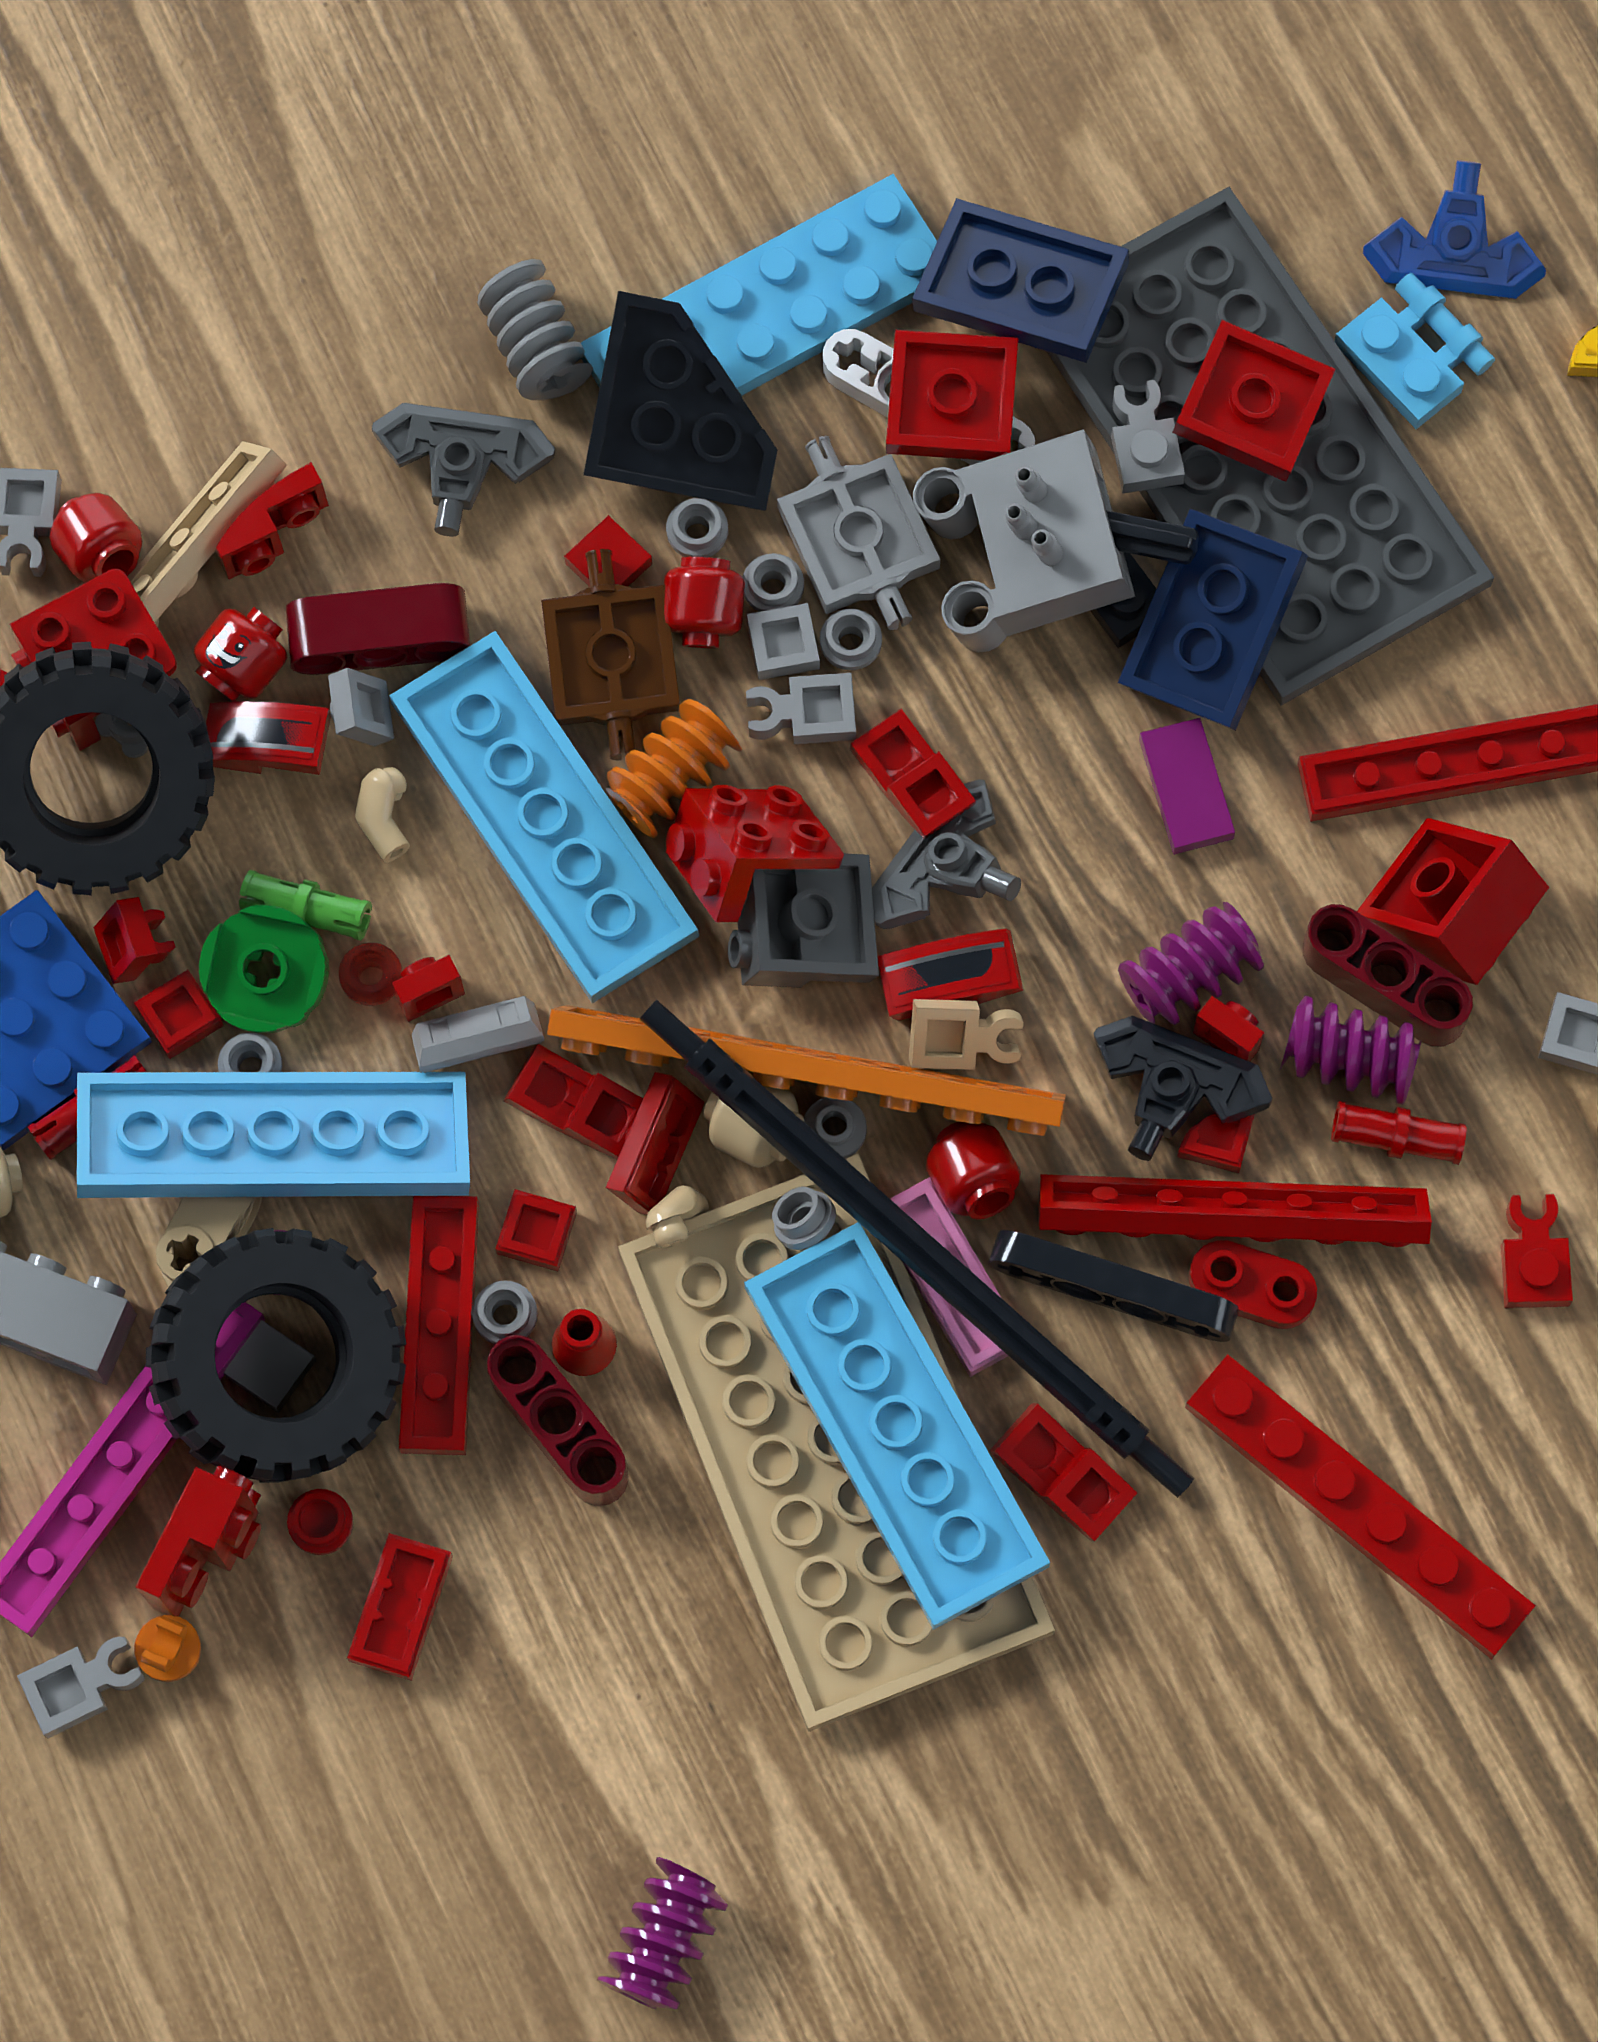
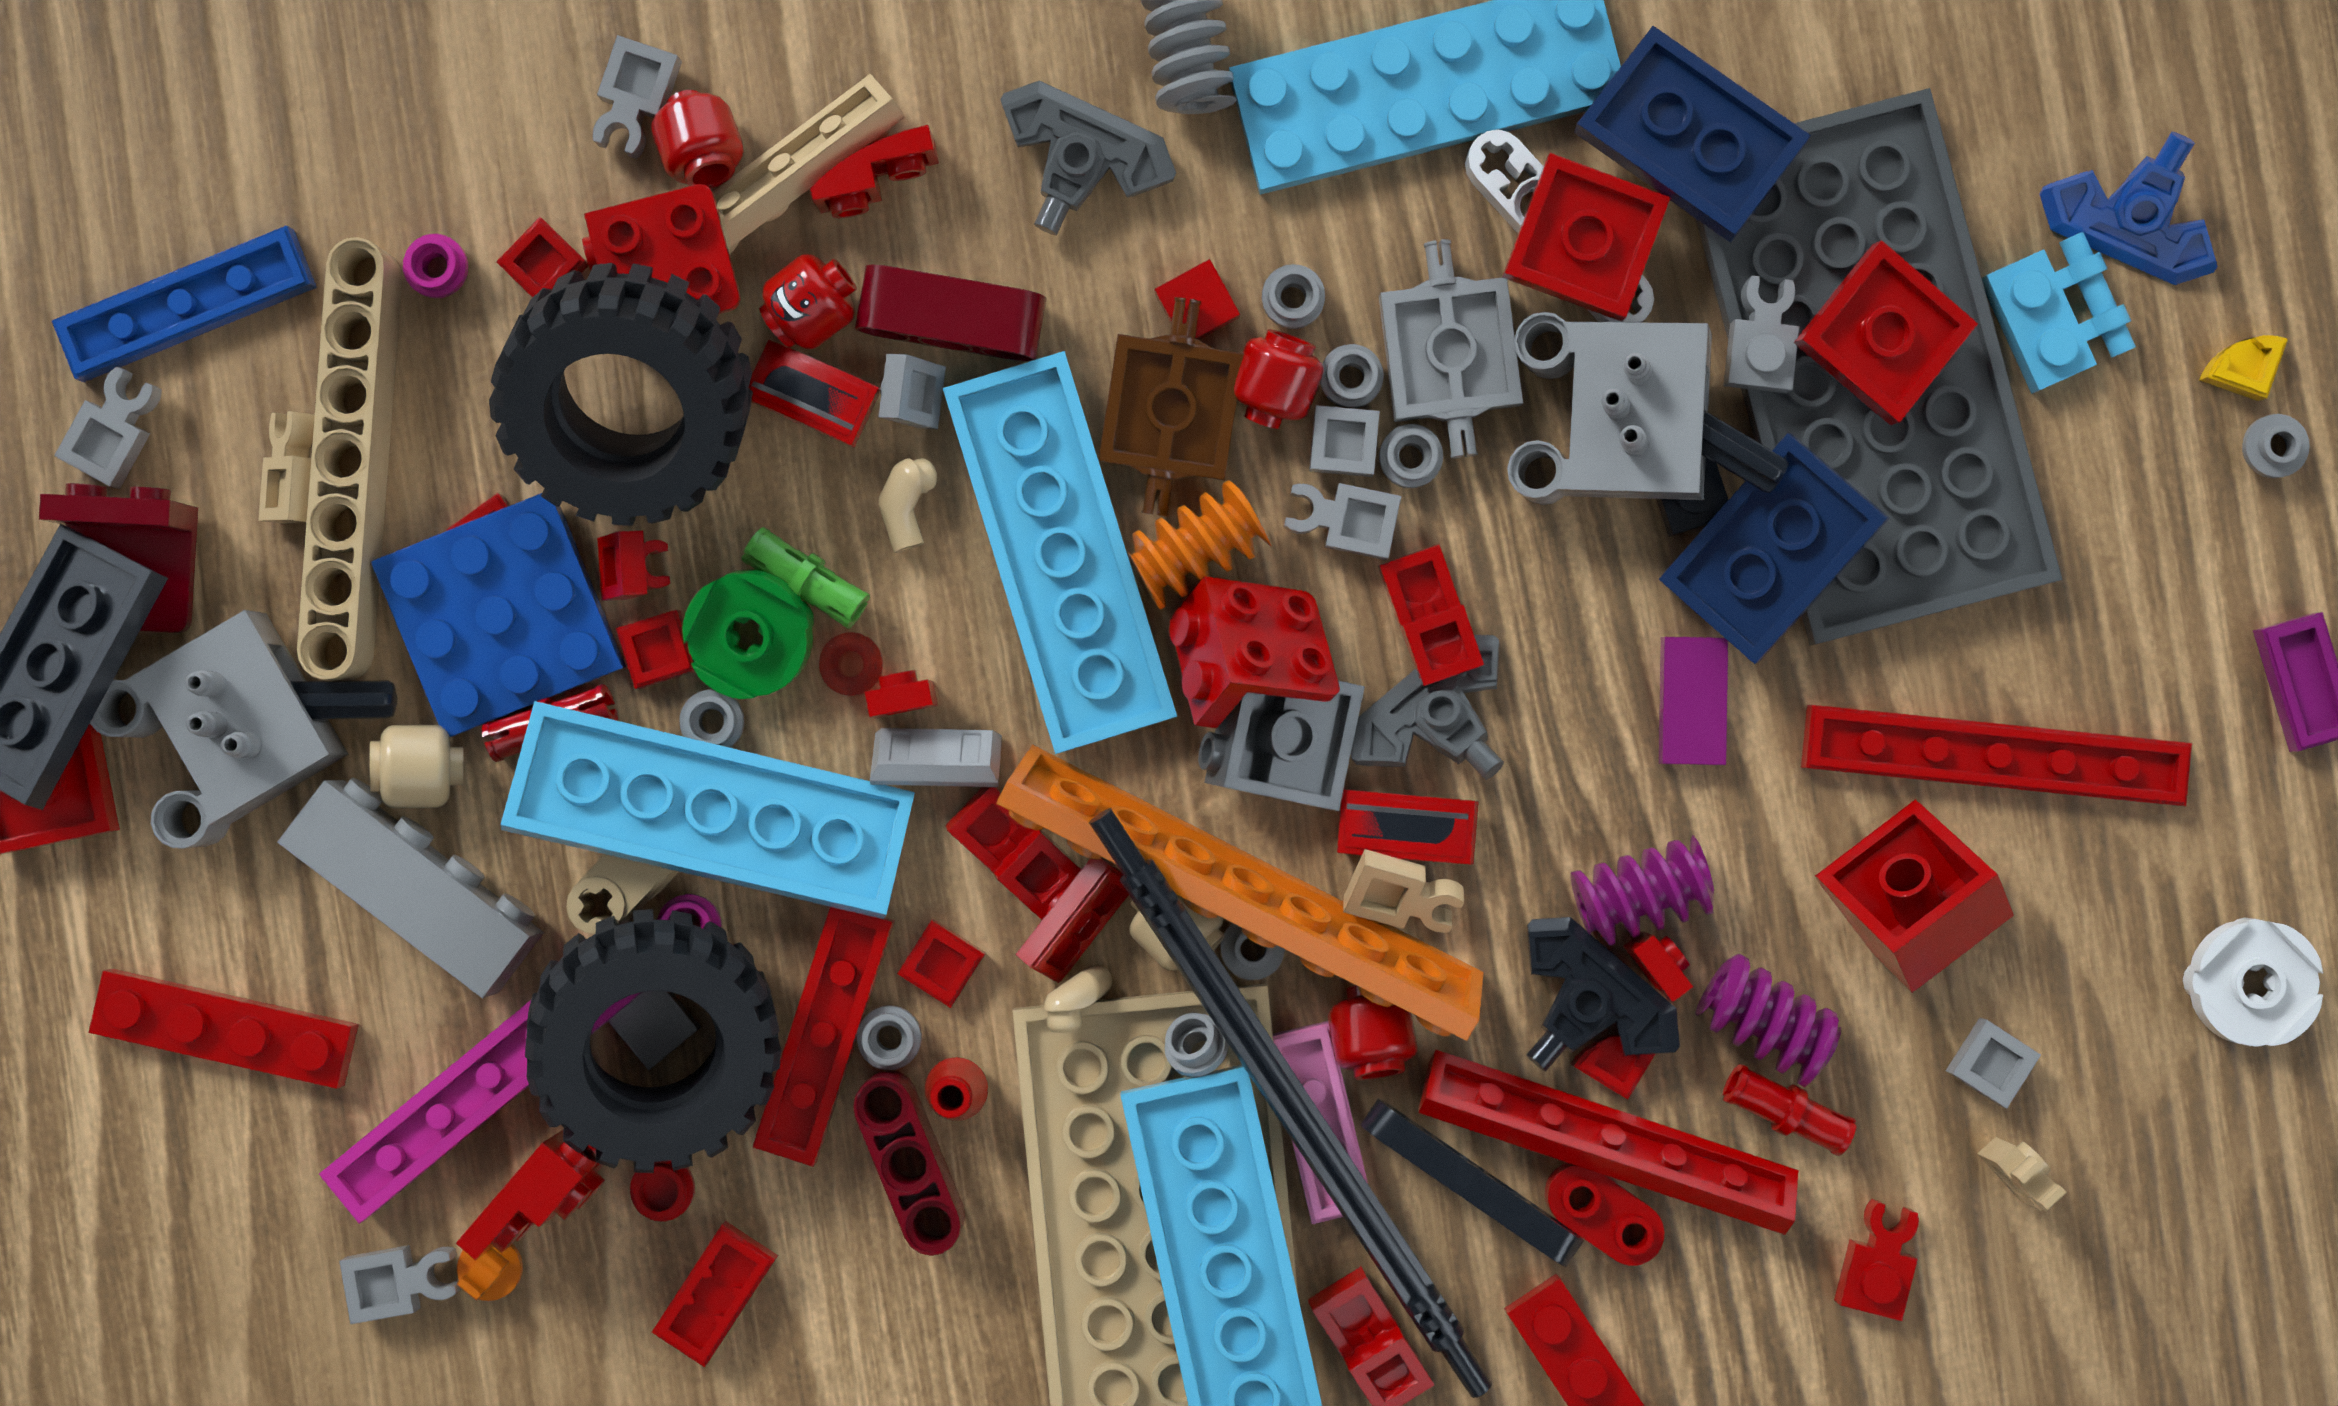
camera: 15 degrees right, 15 degrees up
(673, 414) = (1302, 175): black plate -> none
(1374, 947) = (1856, 965): dark red beam -> none

